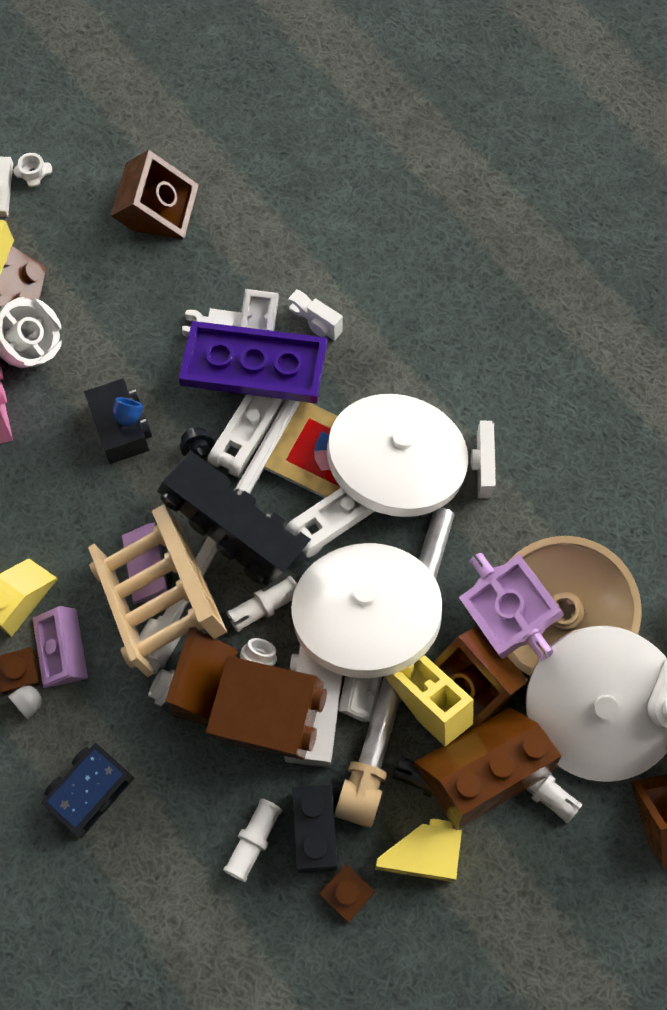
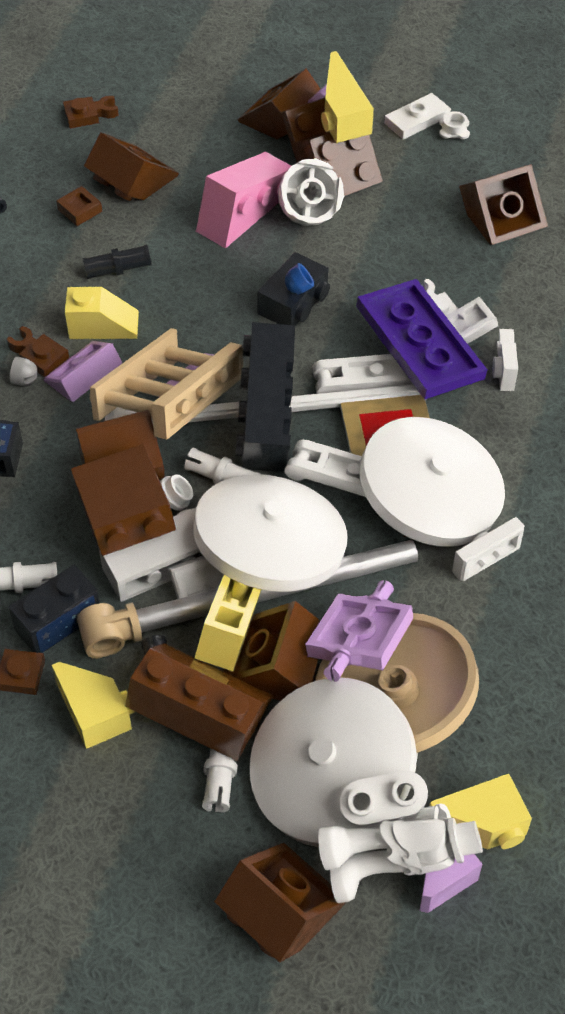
camera: 55 degrees right, 15 degrees down
(197, 441) = (319, 347): black plate -> none

